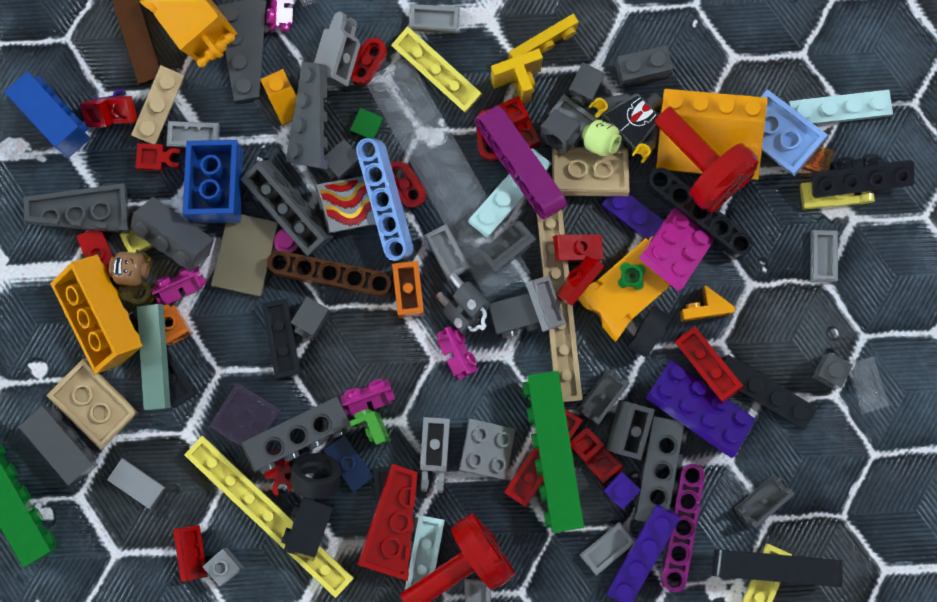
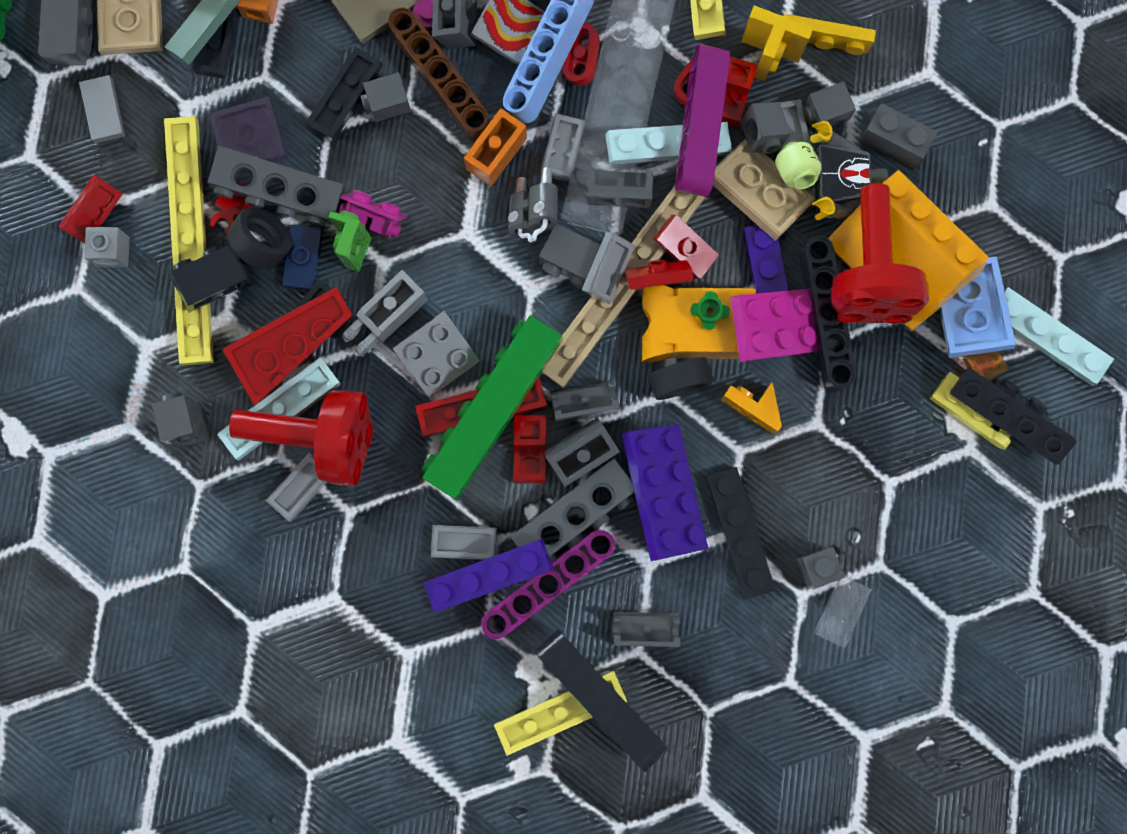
camera: 40 degrees right, 0 degrees up
(453, 341) = (488, 257): dark pink hinge -> none
(621, 490) = (522, 499): dark purple brick -> none
(709, 364) = (709, 458): red plate -> none
(823, 256) = (910, 457): light grey tile -> none

